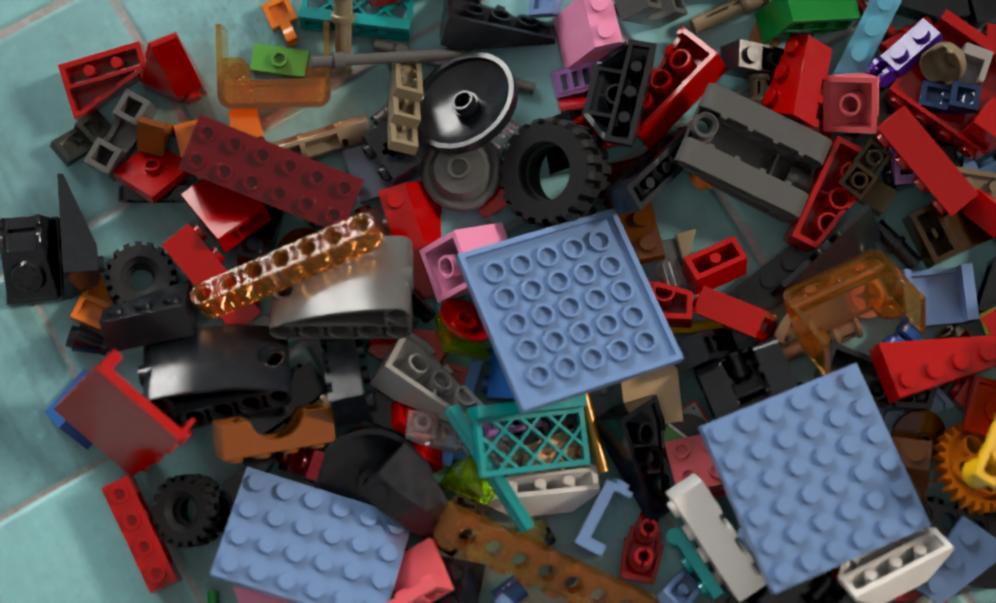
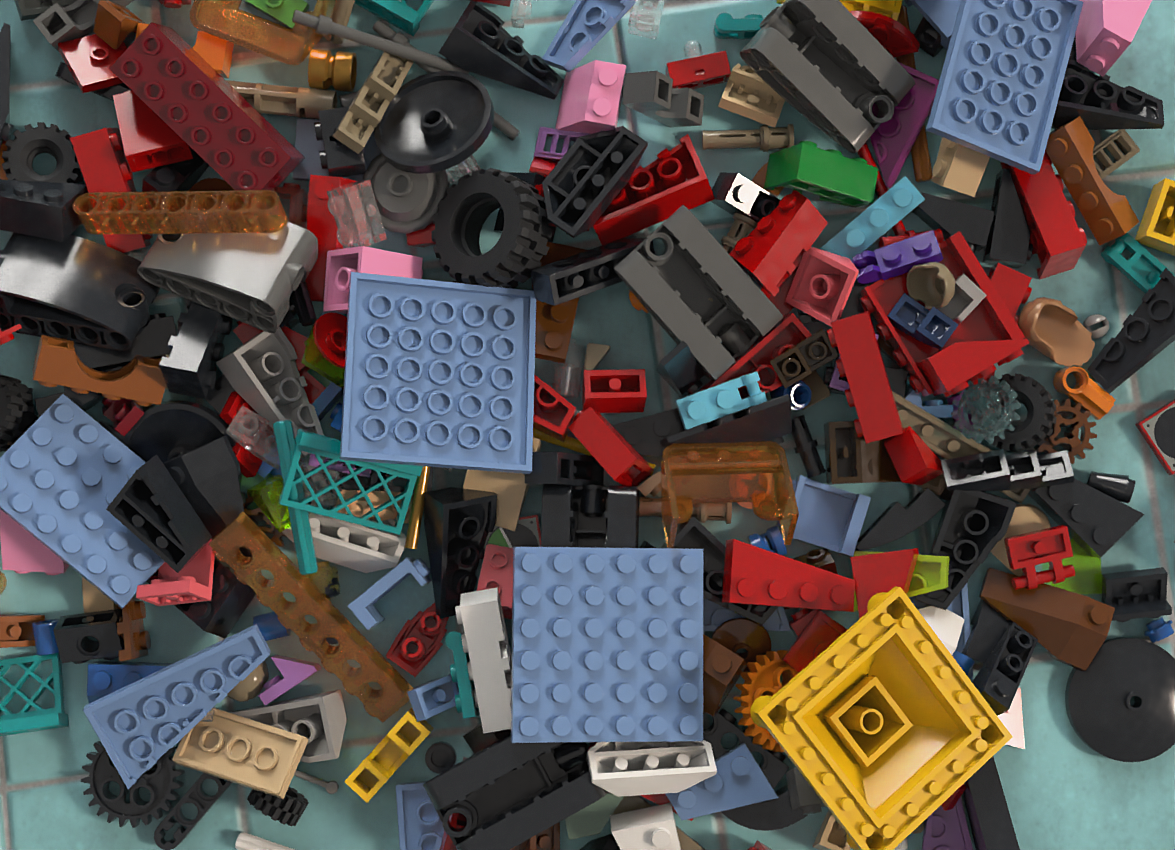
camera: 25 degrees right, 5 degrees up
(355, 97) = (333, 70): none -> pearl gold wheel
(382, 532) = (160, 515): none -> black wedge
(432, 208) = (356, 214): none -> clear brick
(764, 223) = (681, 370): none -> black slope
(810, 234) = (719, 400): none -> medium azure plate
(873, 199) = (798, 392): none -> blue cone

